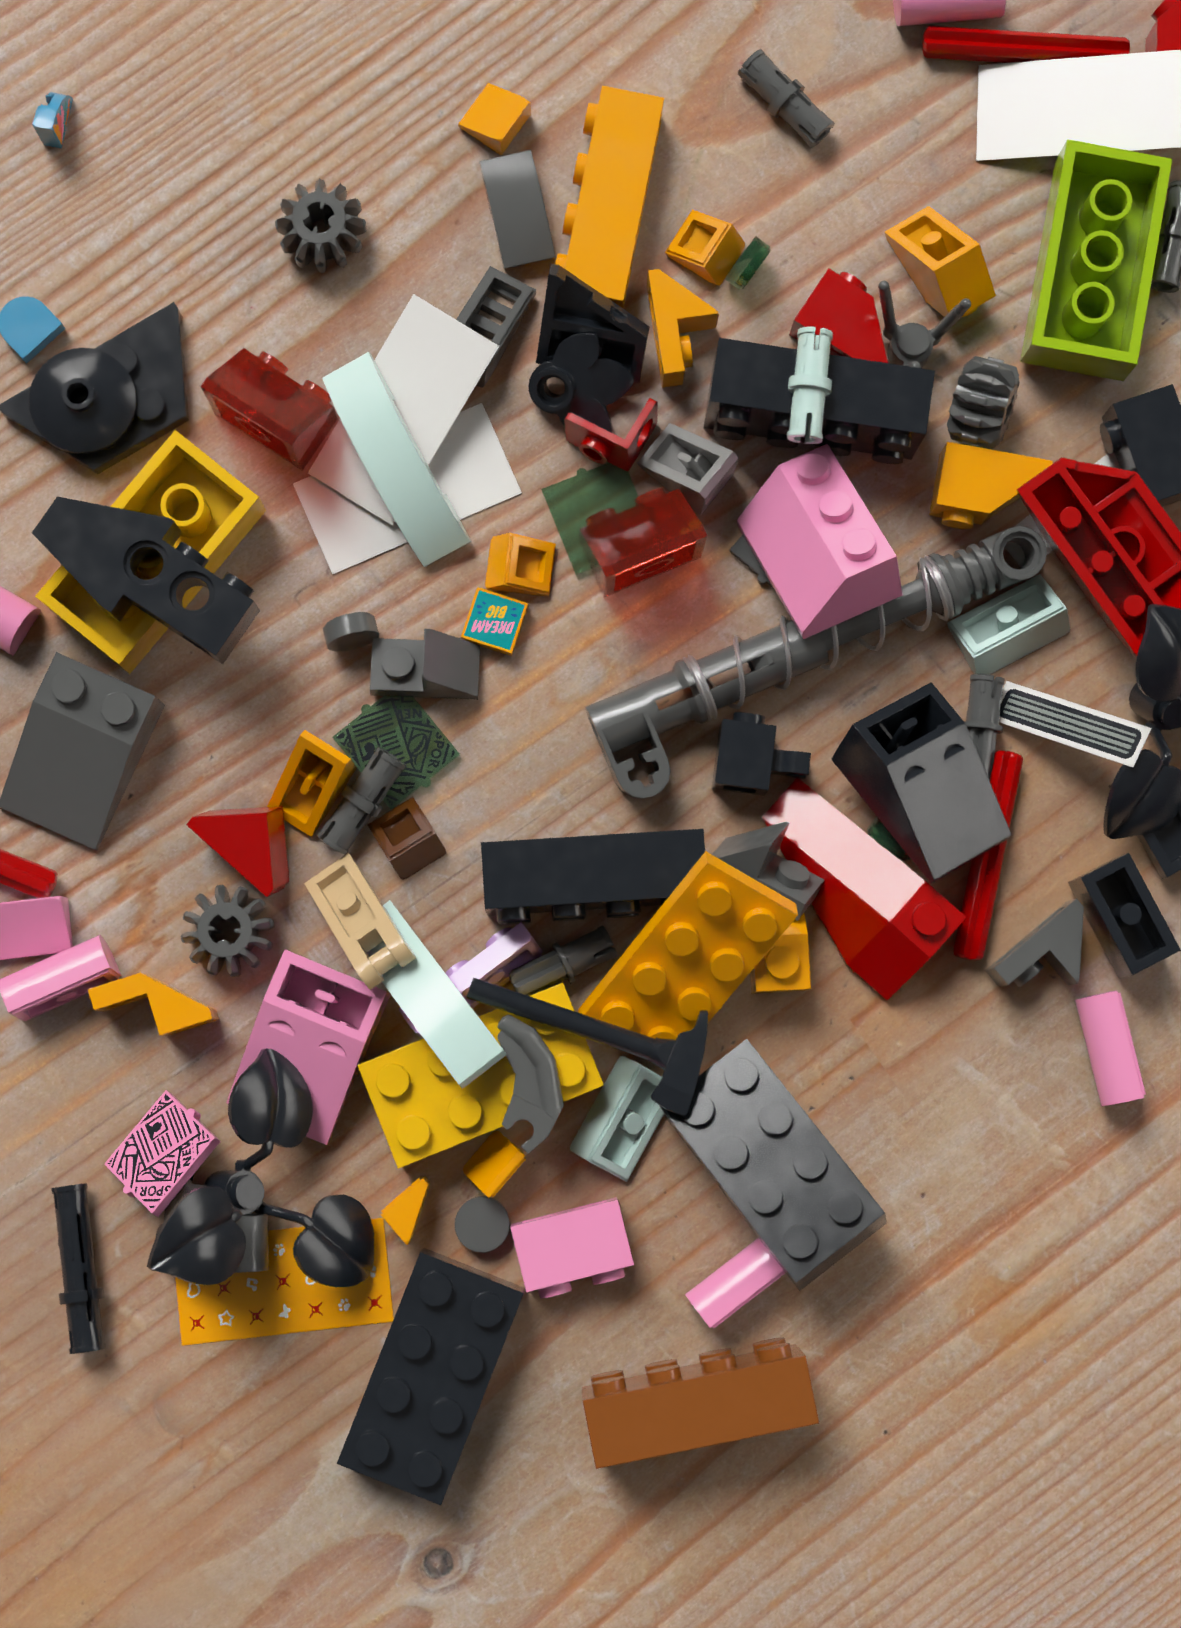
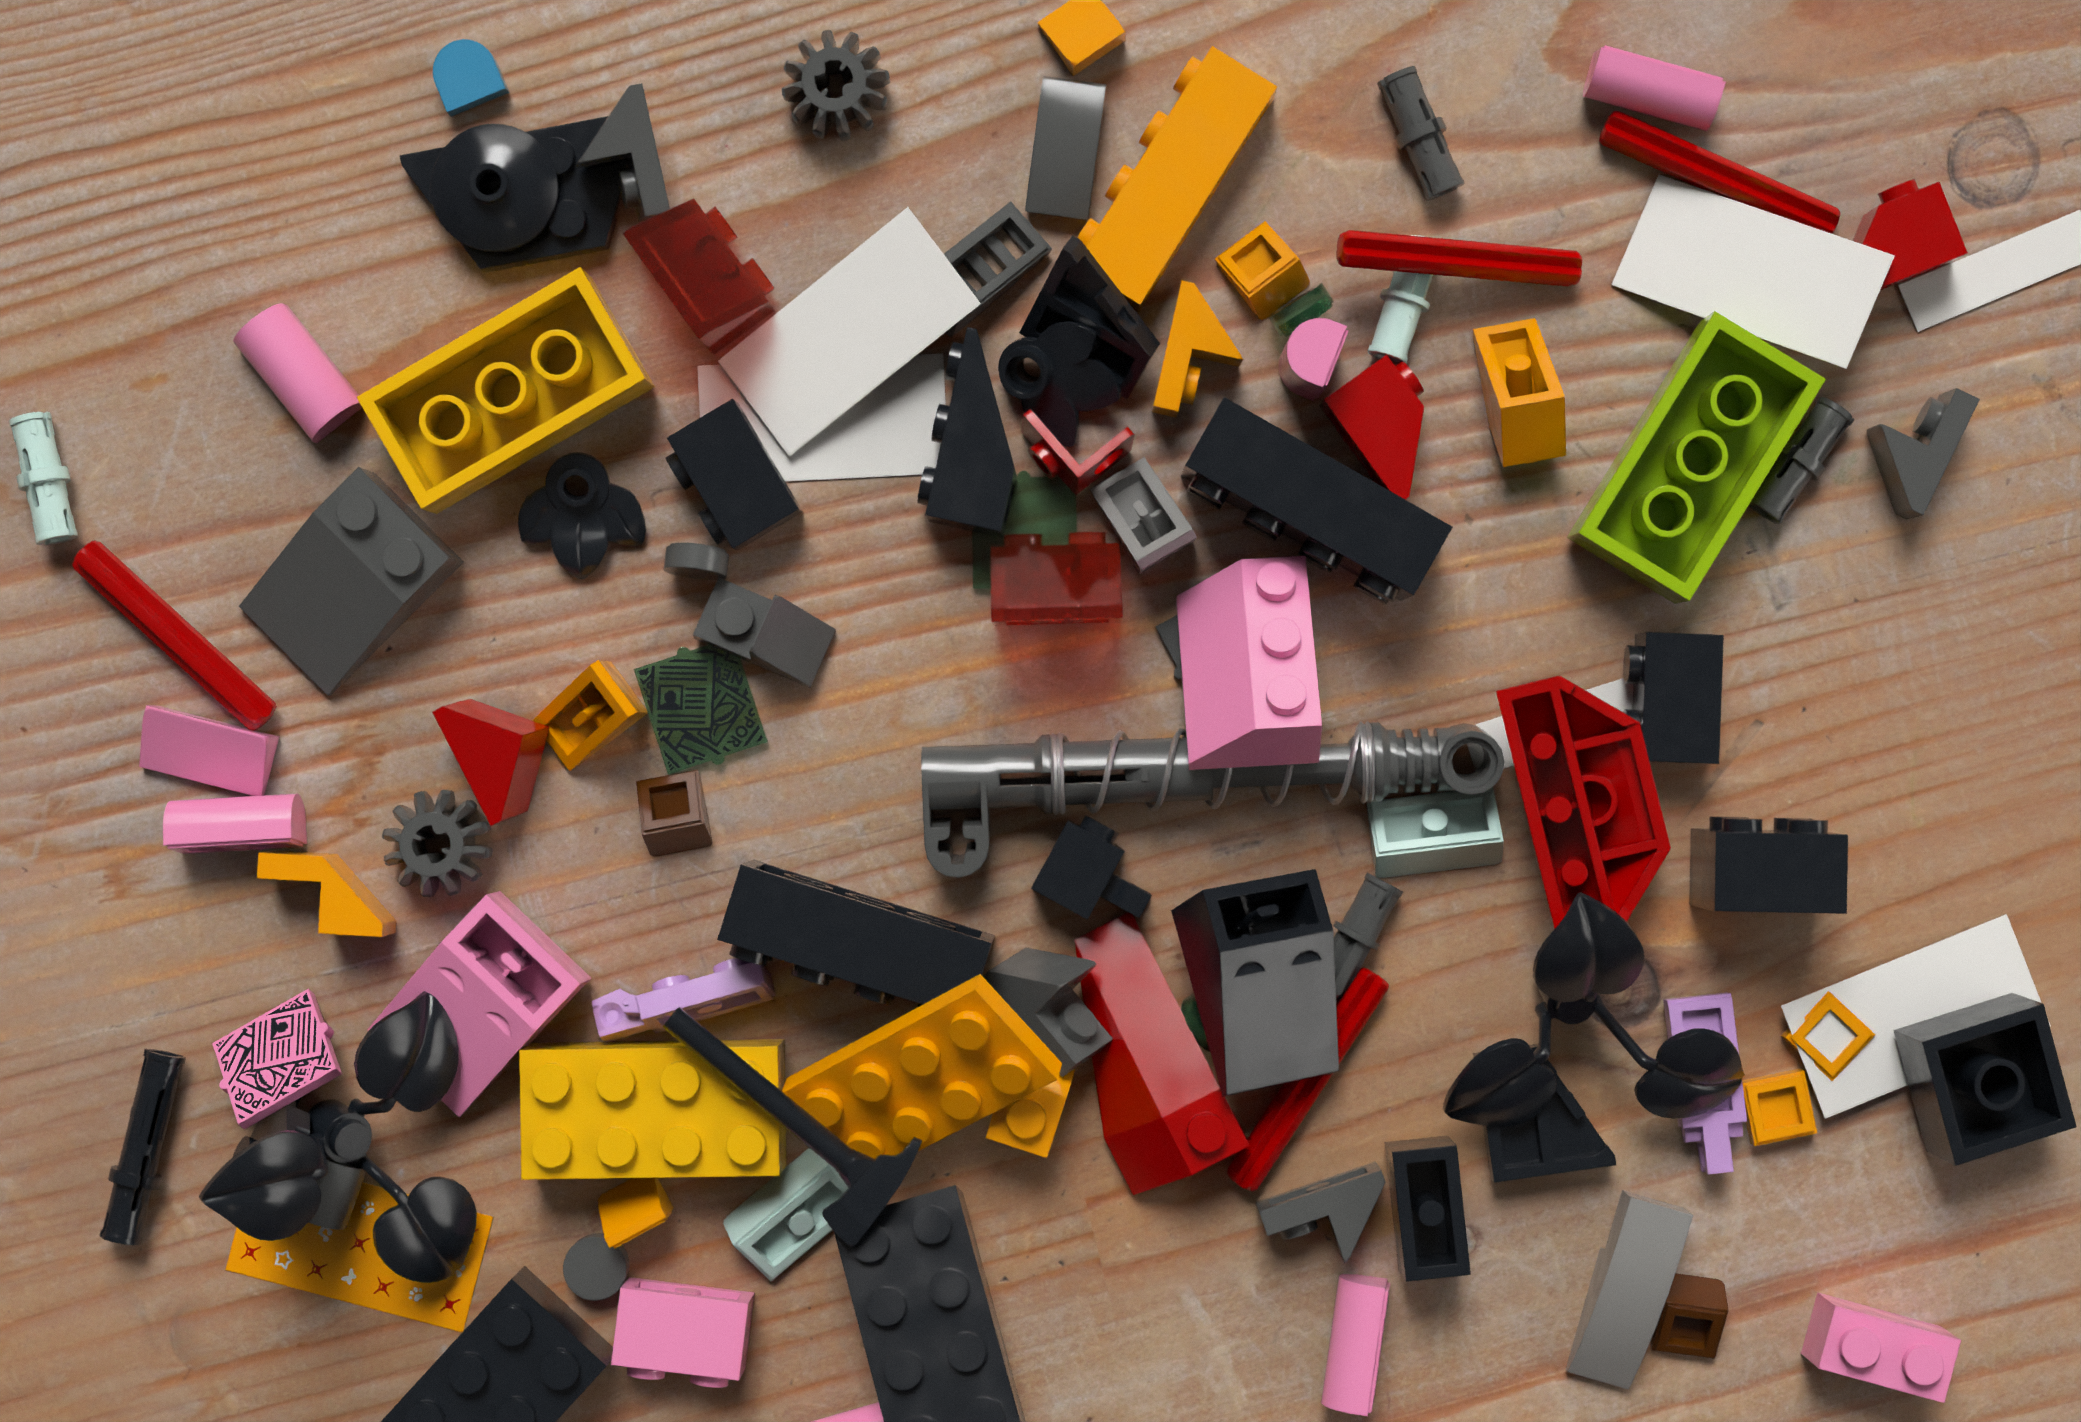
camera: 30 degrees right, 5 degrees up
(103, 553) = (443, 386): black brick -> none
(178, 322) = (630, 137): none -> dark grey slope
(256, 649) = (584, 523): none -> black plate
(354, 553) = (732, 475): none -> black brick
(359, 920) = (581, 891): tan plate -> none
(361, 800) = (638, 754): dark grey pin -> none
(394, 460) = (814, 386): light aqua slope -> none
(405, 1209) = (515, 1221): light orange slope -> none
(439, 1010) = (621, 1000): light aqua slope -> none
(494, 621) = (861, 608): tile -> none
(520, 564) = (915, 555): light orange slope -> none
(537, 1083) = (704, 1149): dark grey piece -> none
(542, 469) = (974, 463): none -> black slope
(563, 962) = (790, 1018): dark grey axle -> none
(771, 291) = (1311, 356): none -> bright pink brick
(810, 385) = (1302, 493): light aqua pin -> none
(823, 225) = (1400, 315): none -> light aqua axle
(853, 177) = (1458, 258): none -> red axle
(913, 342) = (1450, 471): dark grey plant -> none
(978, 483) = (1462, 661): light orange slope -> none
(983, 402) = (1501, 574): dark grey gear -> none
(1072, 724) = (1454, 975): sticker -> none

